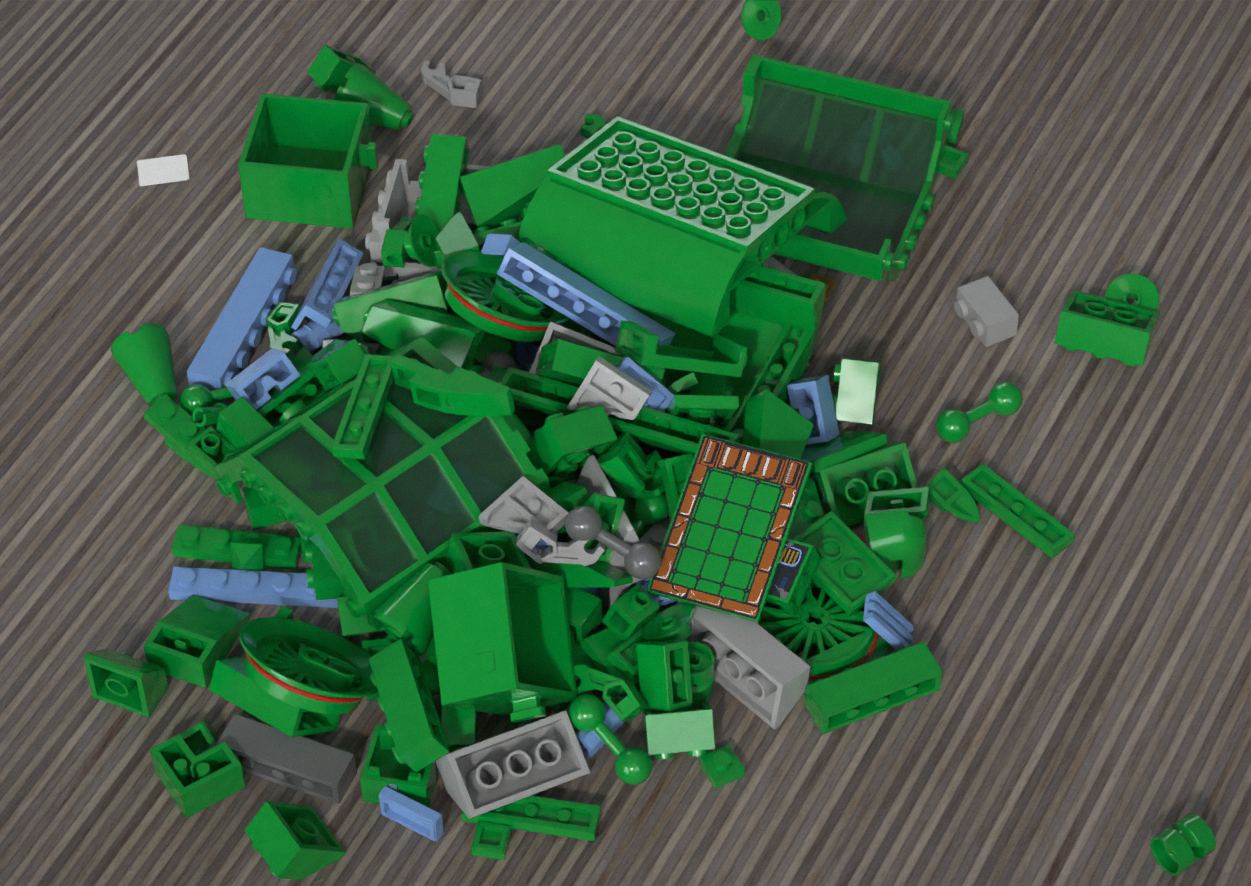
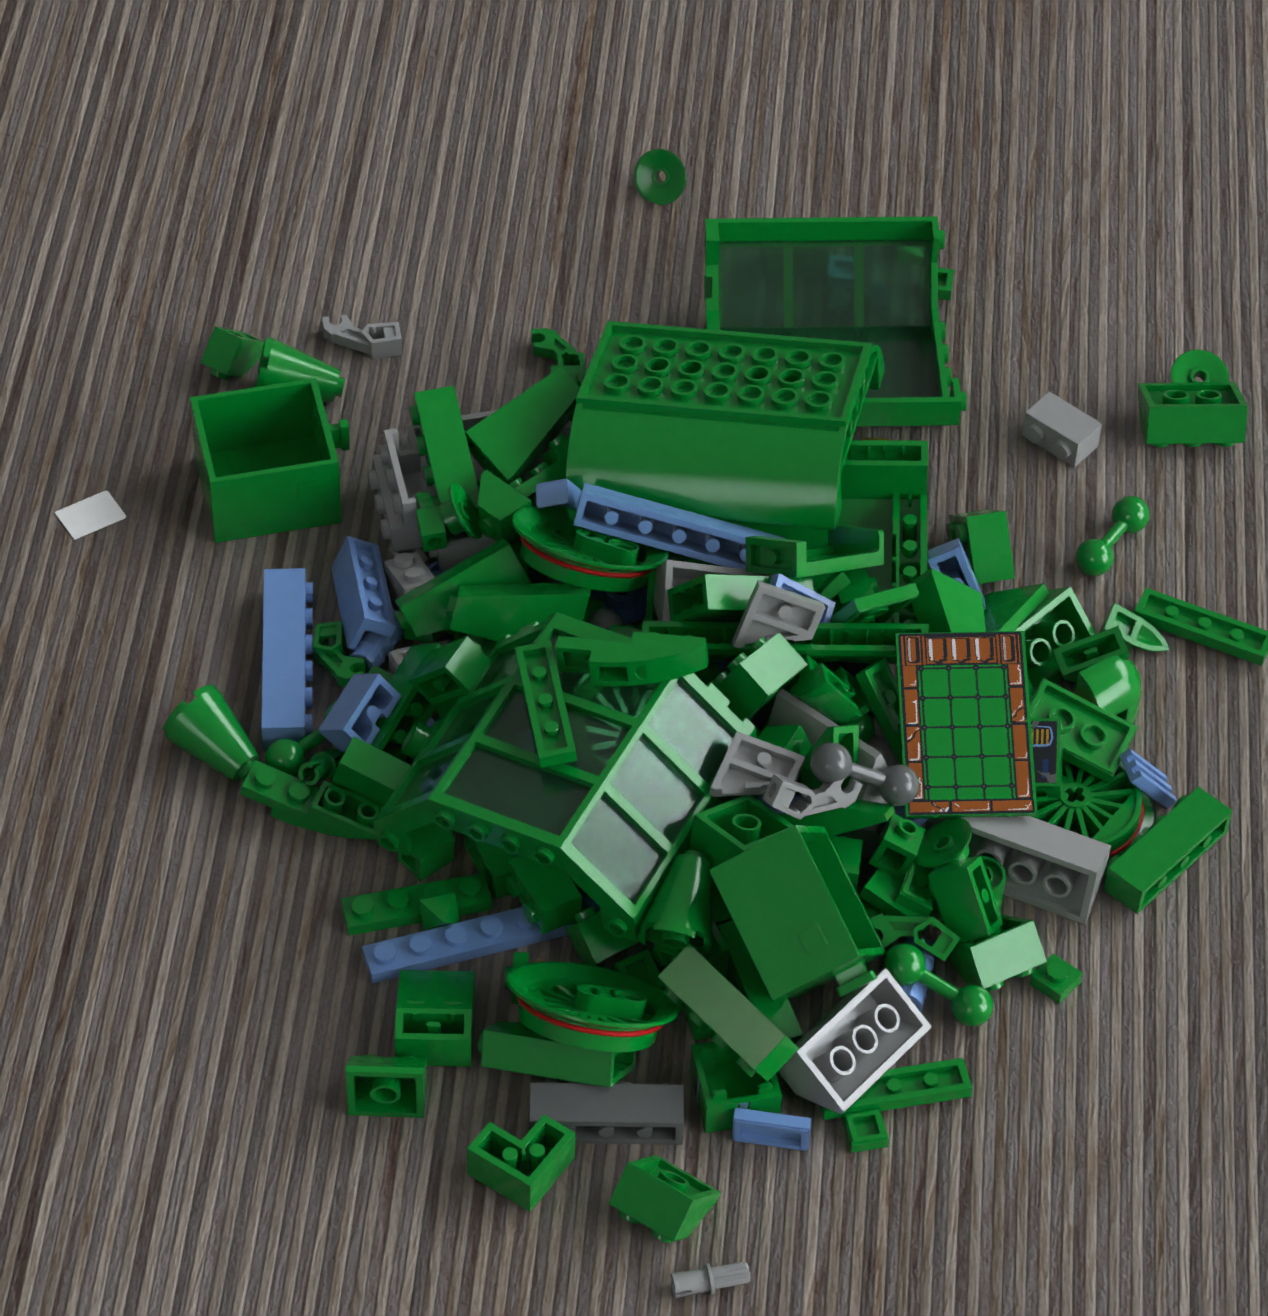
camera: 25 degrees left, 0 degrees up
(200, 737) = (504, 1119): green slope -> none

